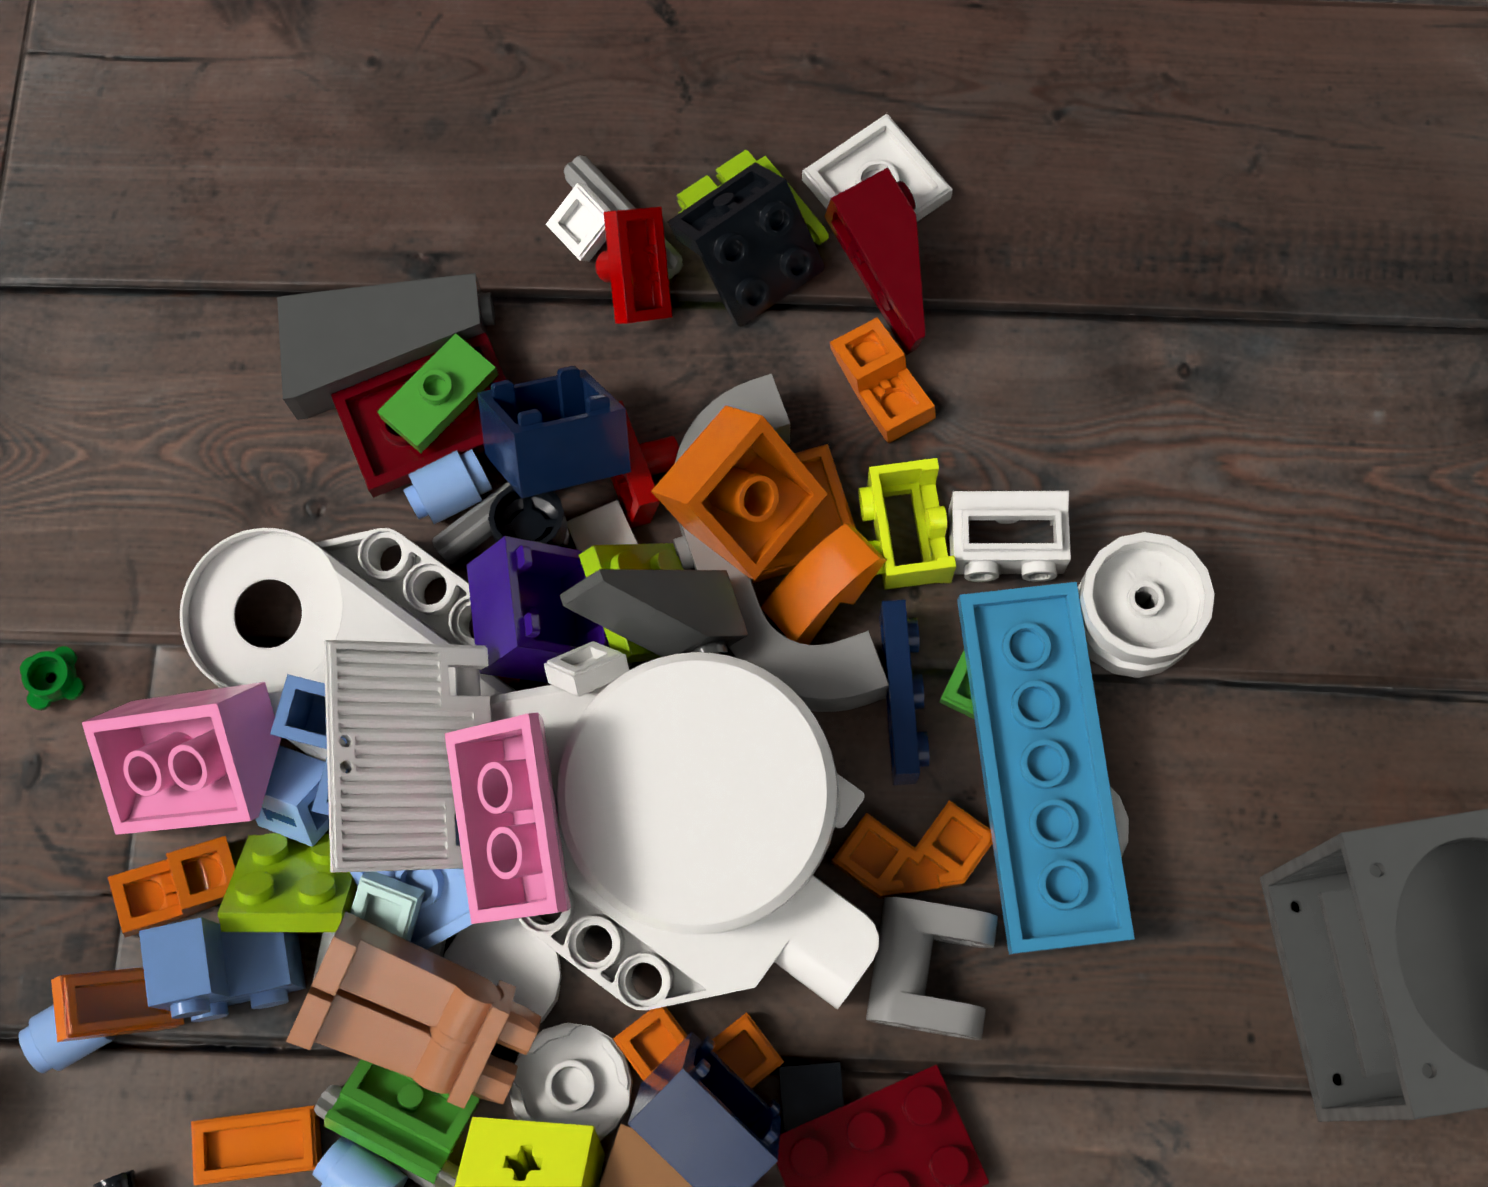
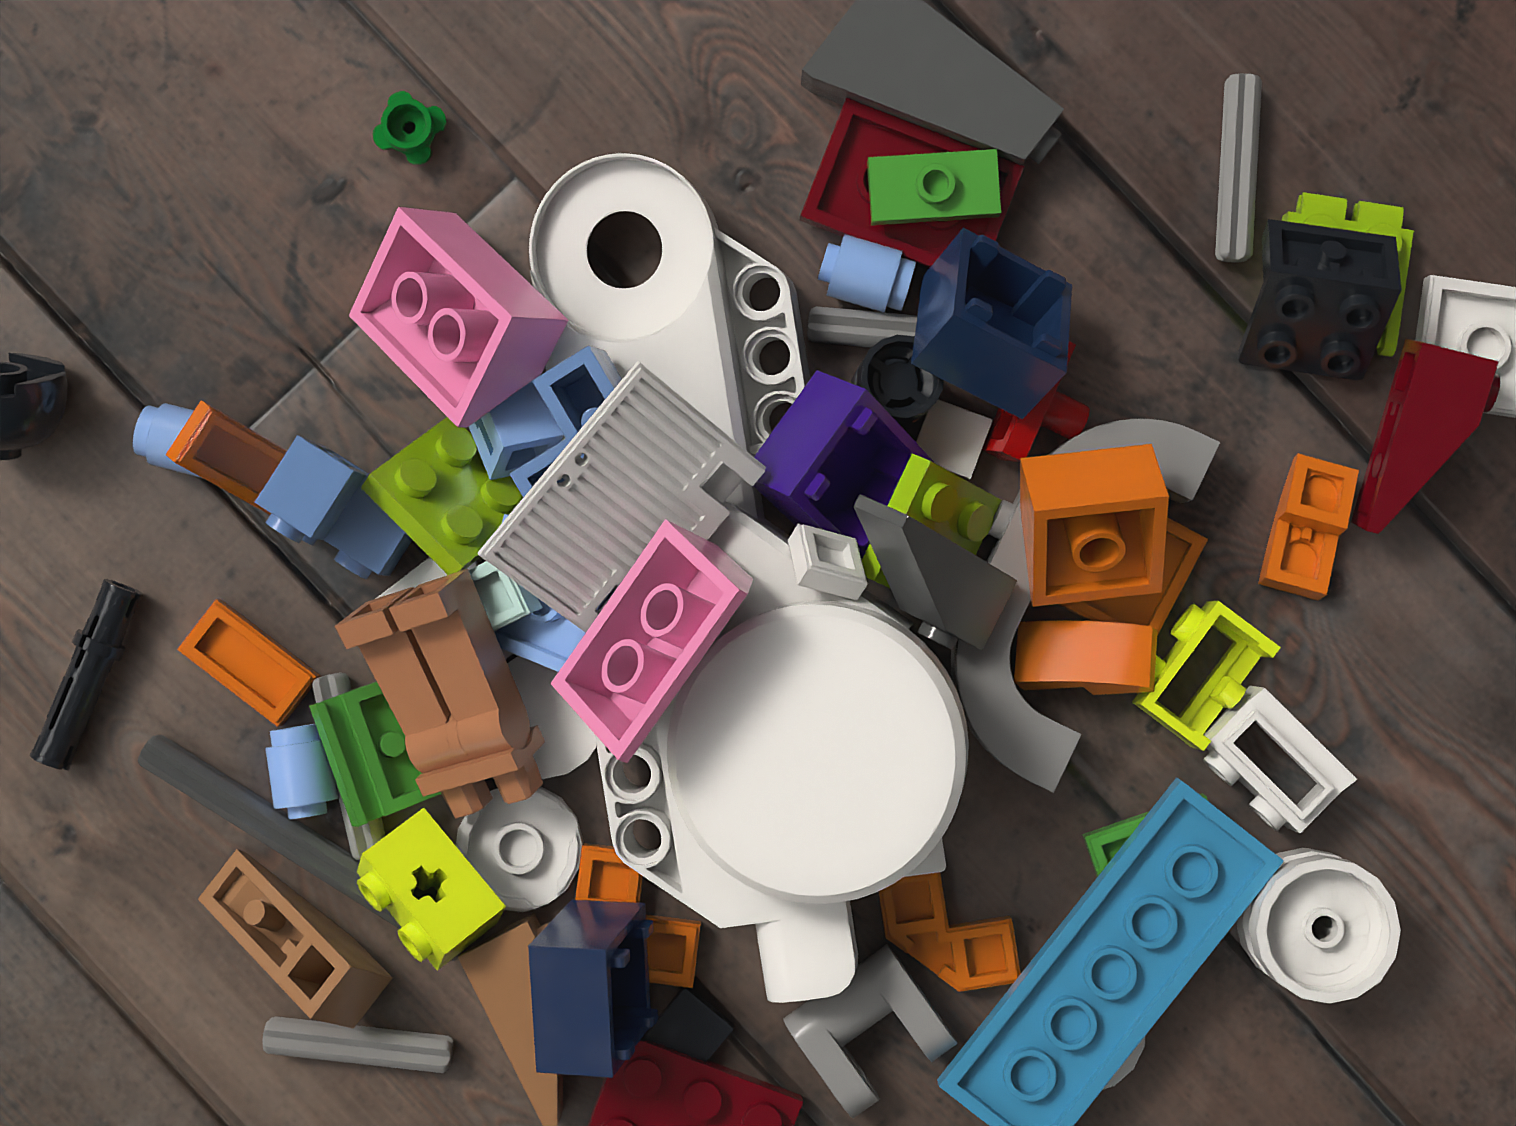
camera: 40 degrees right, 15 degrees up
(174, 887) = (359, 399): orange slope -> none
(580, 222) = (1200, 141): white tile -> none
(636, 265) = (1204, 231): red tile -> none
(905, 693) = (1098, 758): dark blue plate -> none

